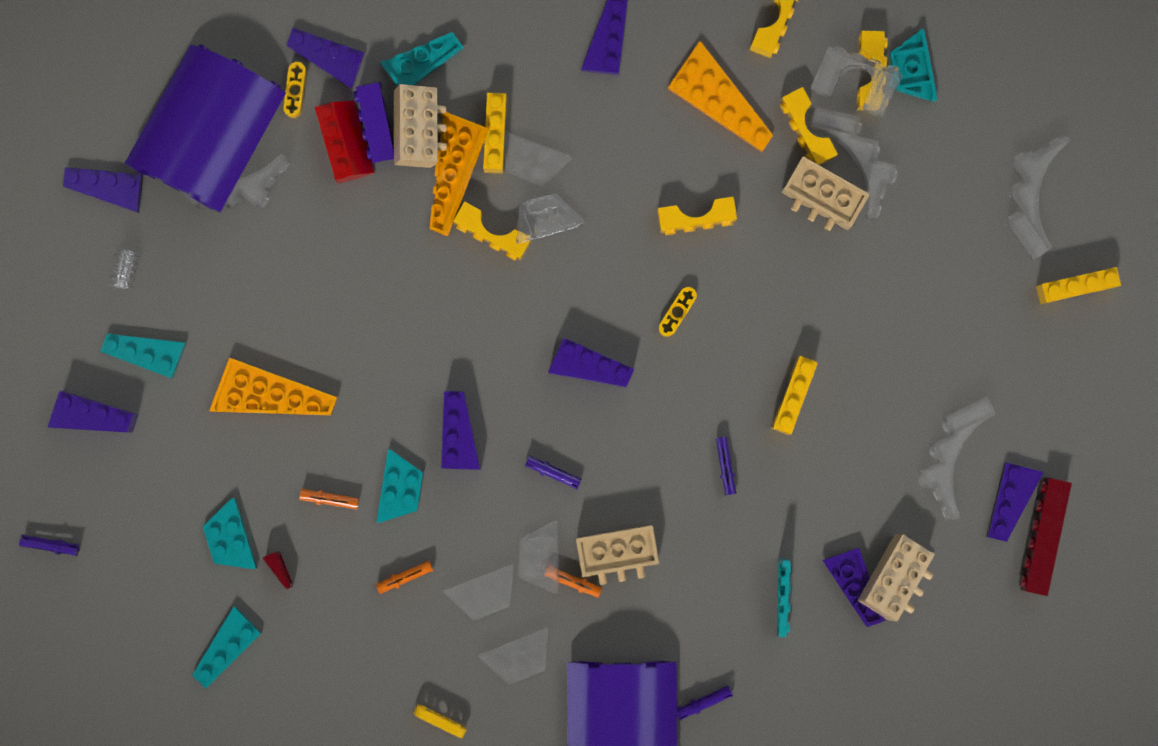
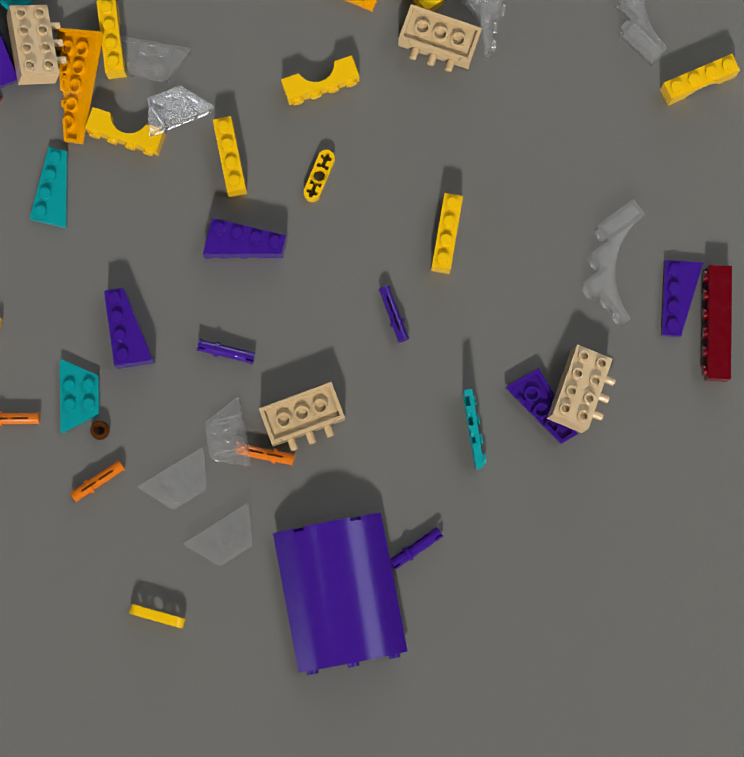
camera: 10 degrees left, 5 degrees down
(408, 279) = (52, 190): none -> teal wing
(409, 529) = (93, 430): none -> reddish brown plate
(592, 276) = (229, 156): none -> yellow arch

